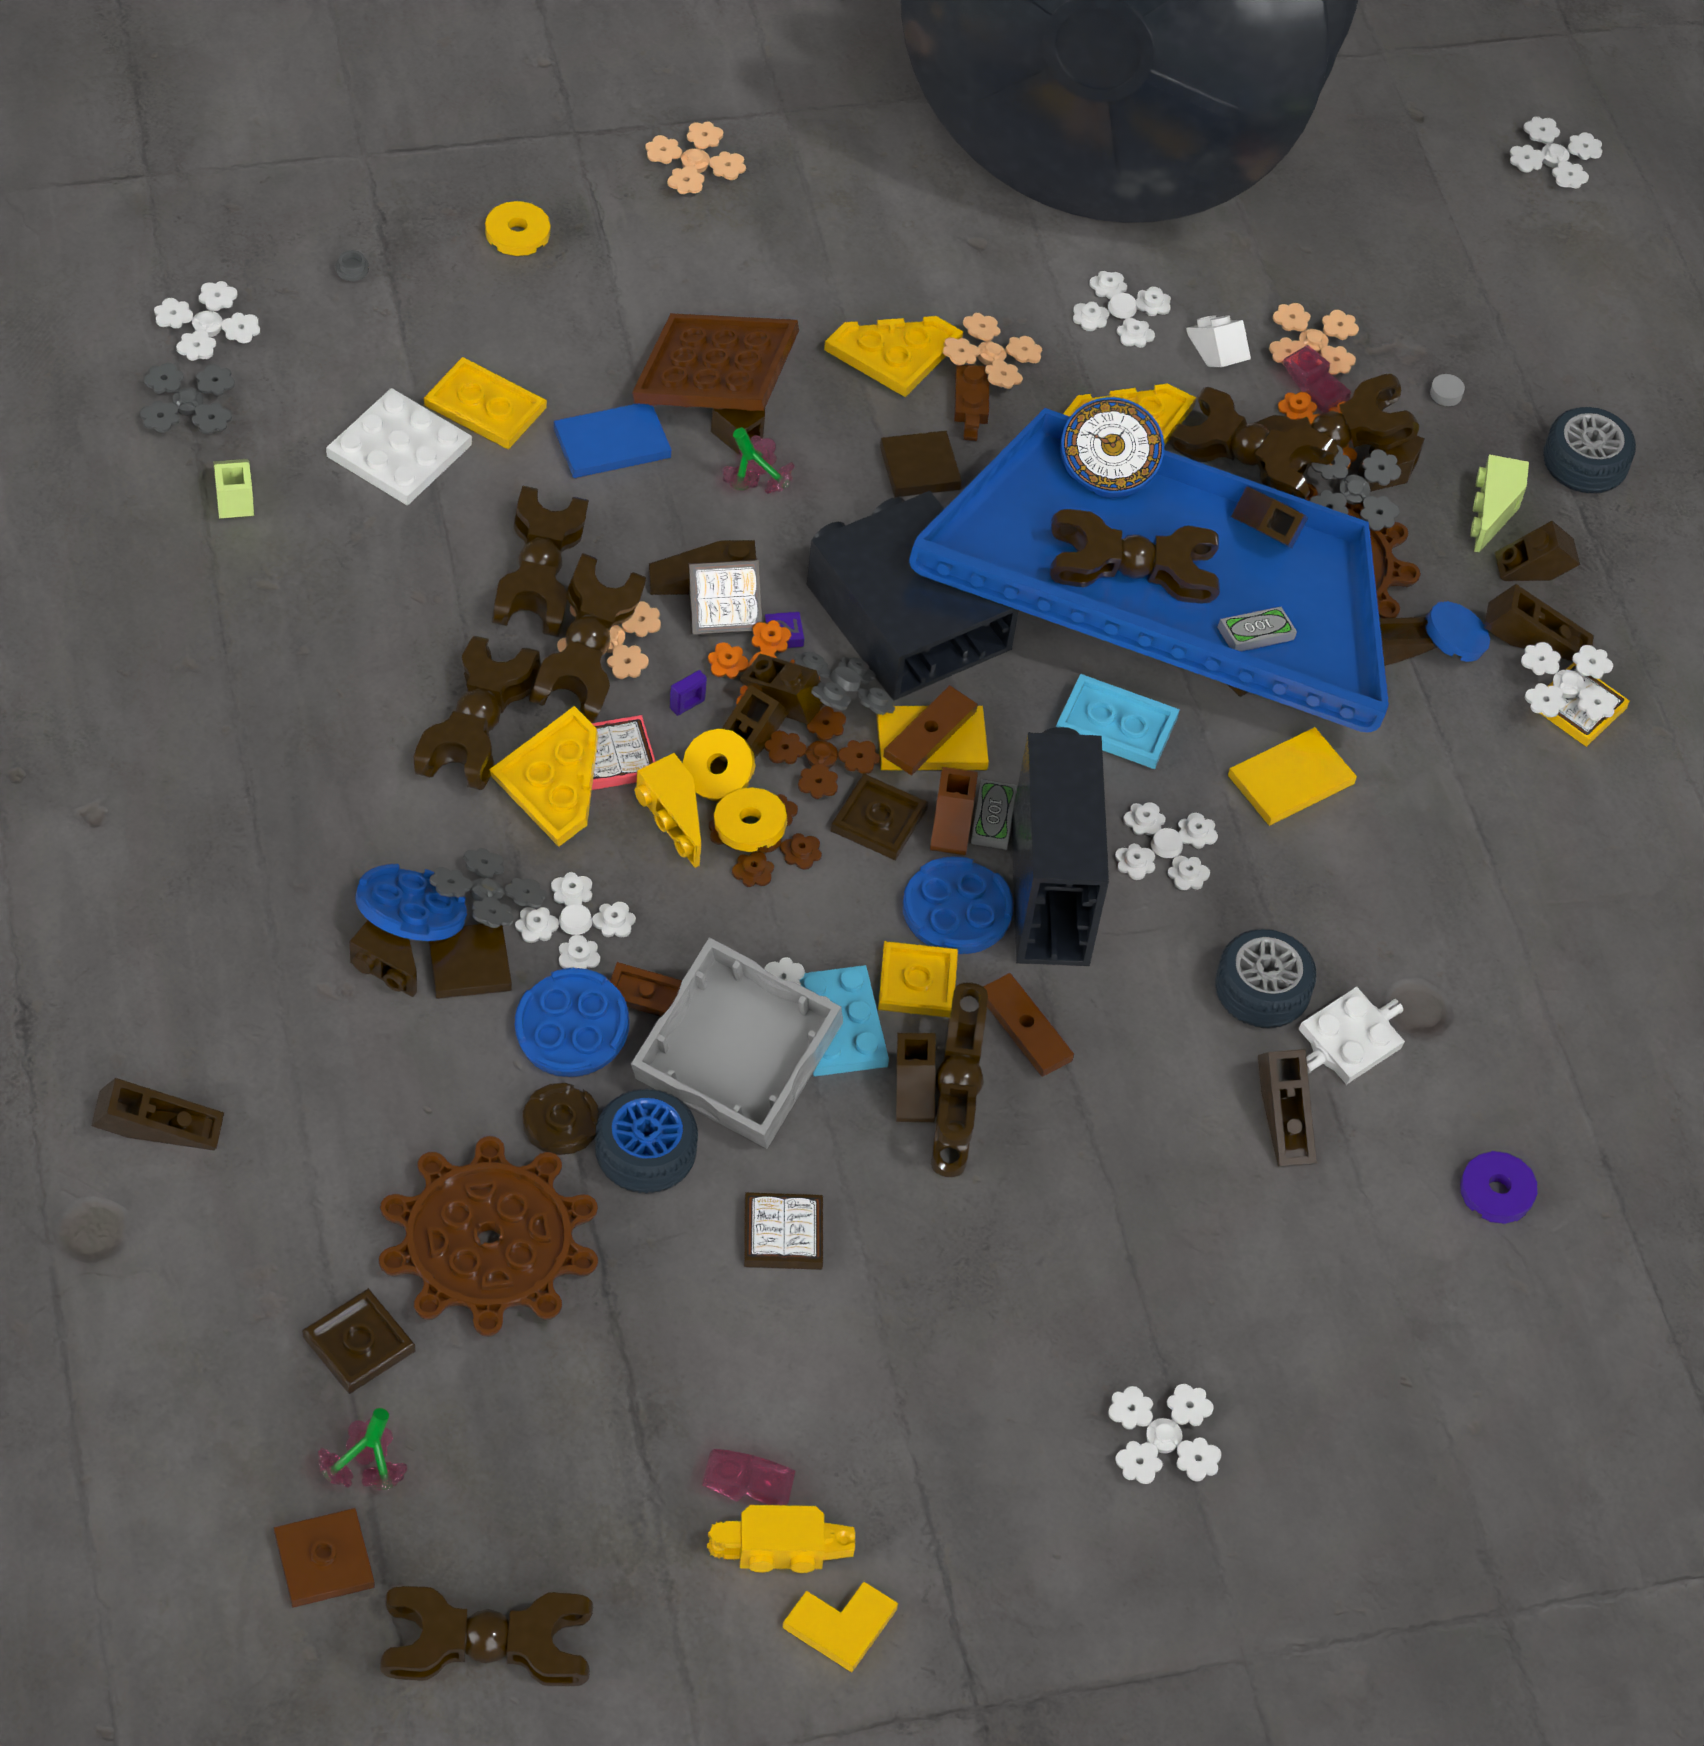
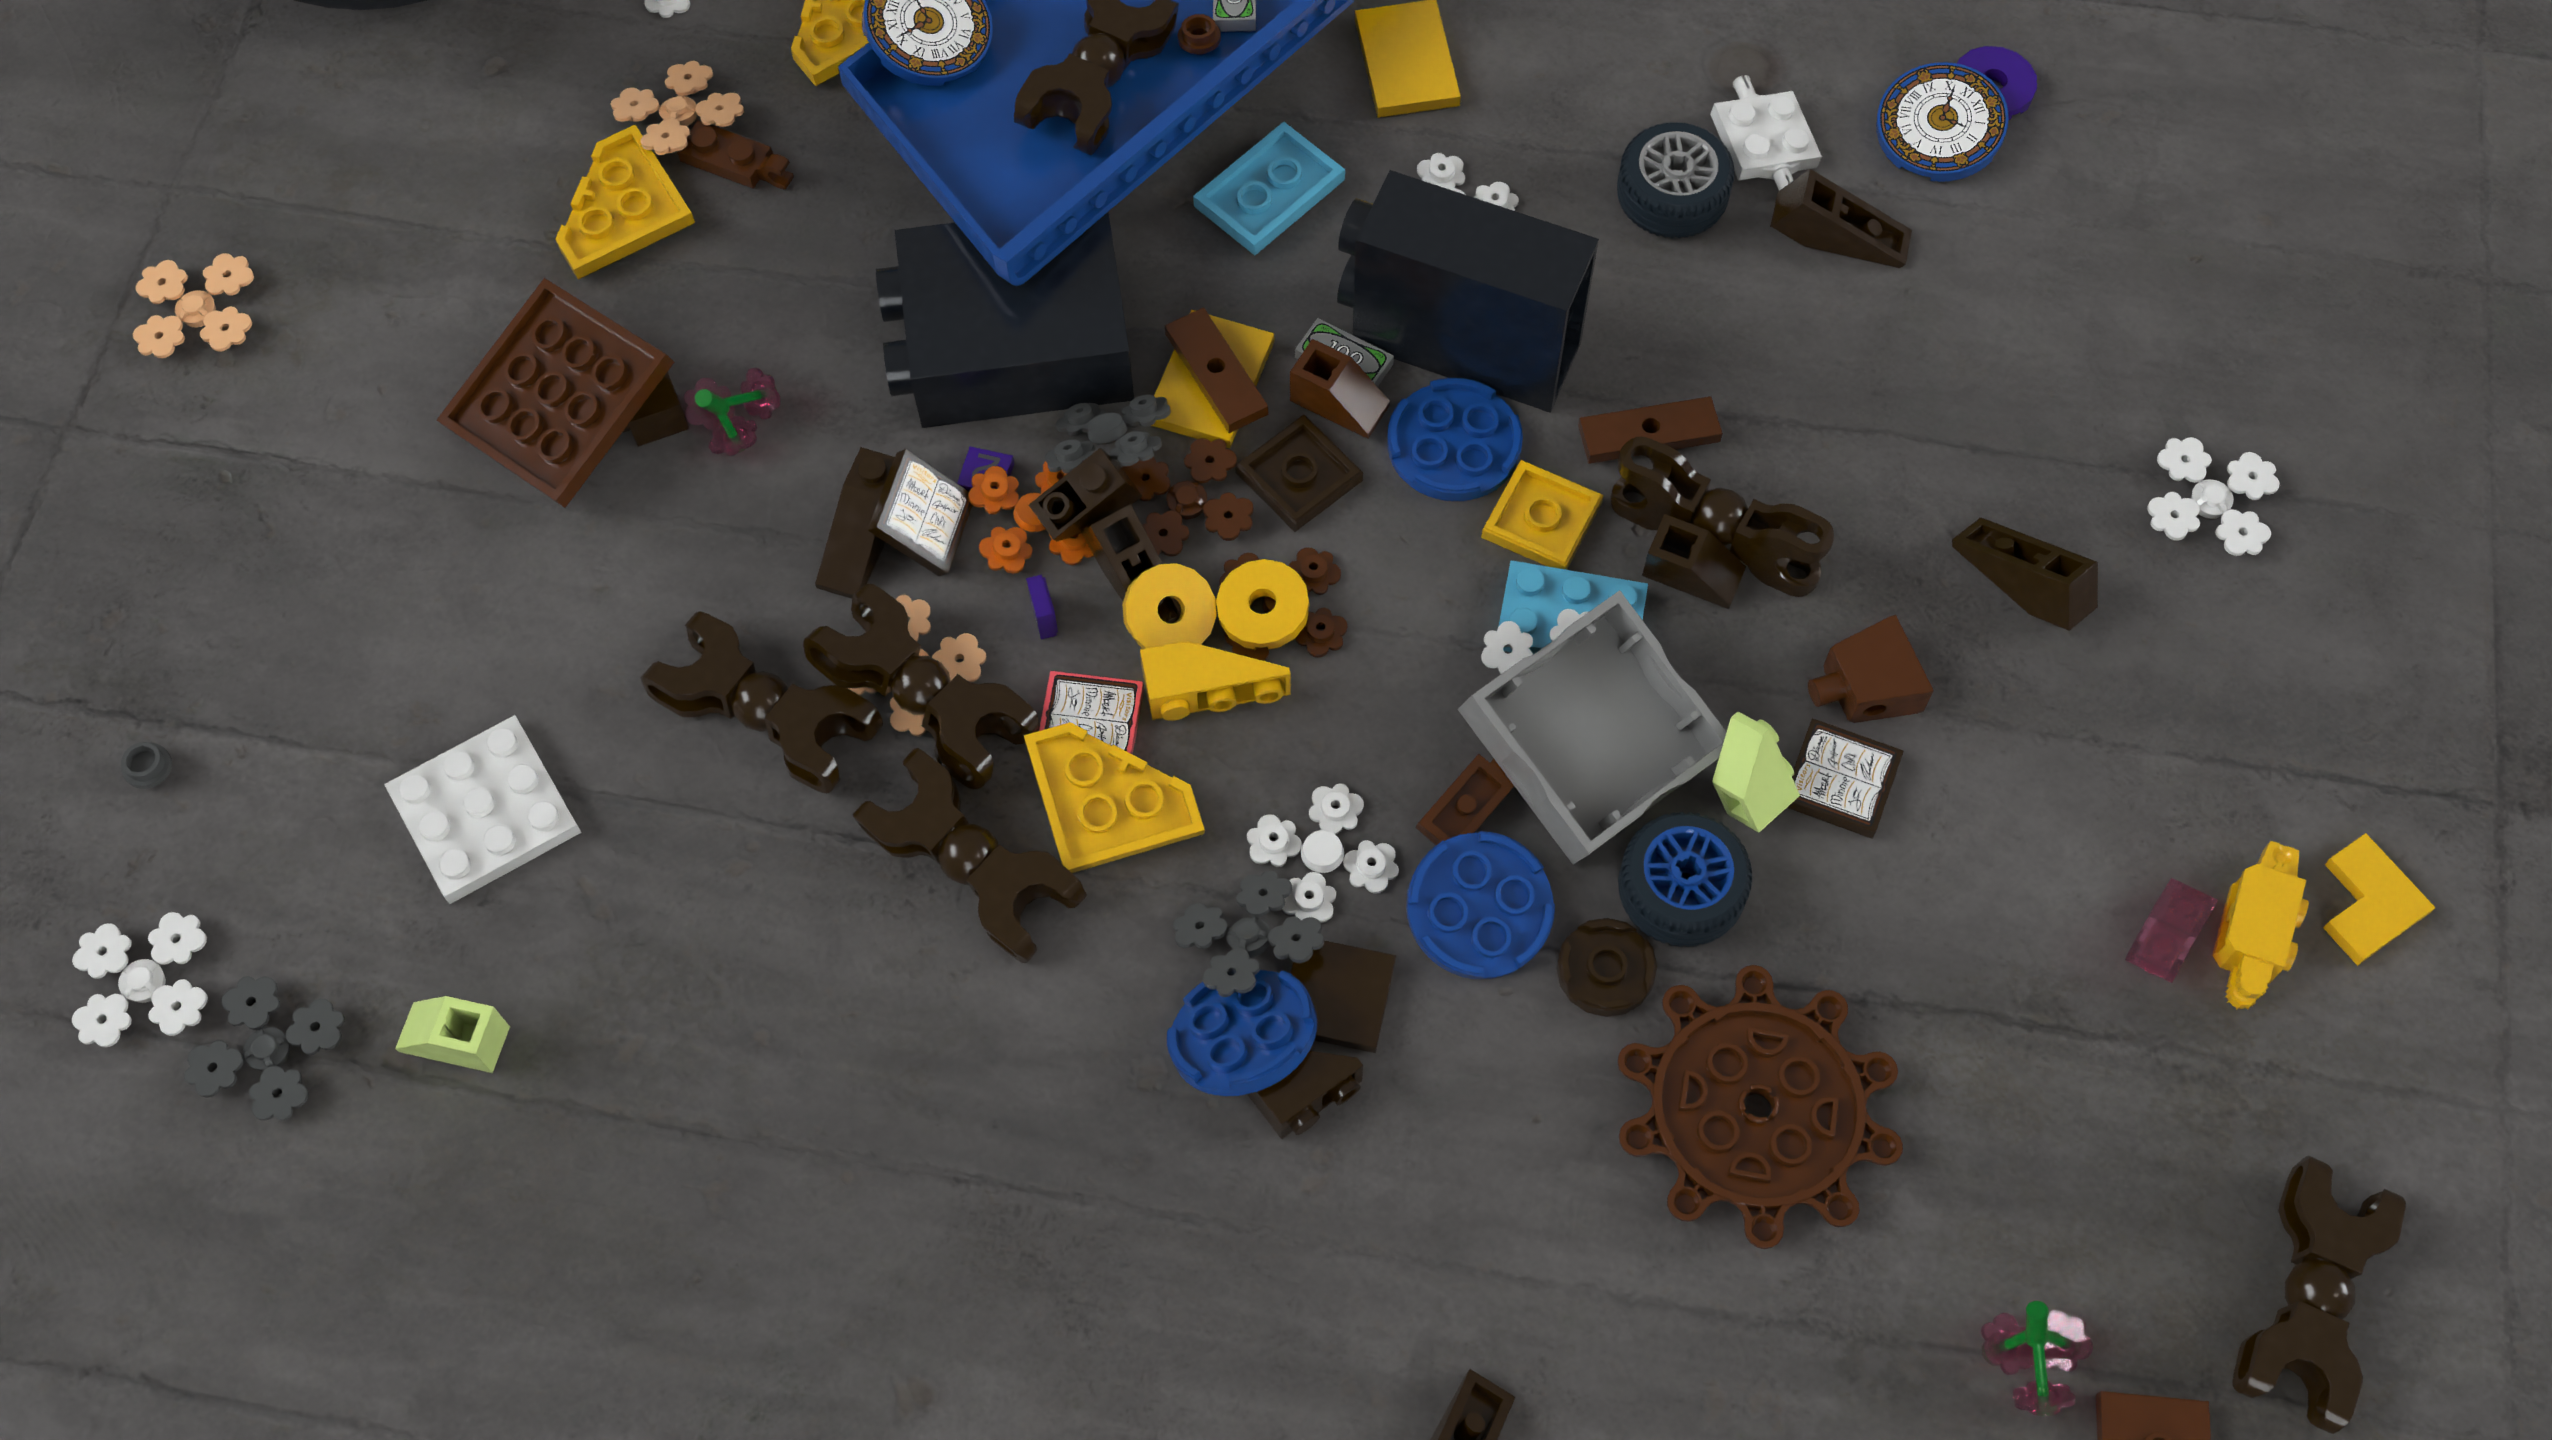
camera: 60 degrees left, 10 degrees up
(358, 1341) = (1855, 1310): dark brown tile -> none
(485, 403) = (462, 682): yellow tile -> none
(517, 214) = (182, 525): yellow tile -> none
(612, 439) = (599, 558): blue tile -> none
(745, 1156) = (1753, 774): none -> yellowish green slope
(879, 1224) = (1873, 675): none -> reddish brown torso
(920, 463) = (803, 244): dark brown tile -> none
(1022, 1311) = (2033, 573): none -> dark brown slope
(1202, 615) = (1199, 34): none -> reddish brown plate
(1431, 1153) = (1942, 121): none -> tile

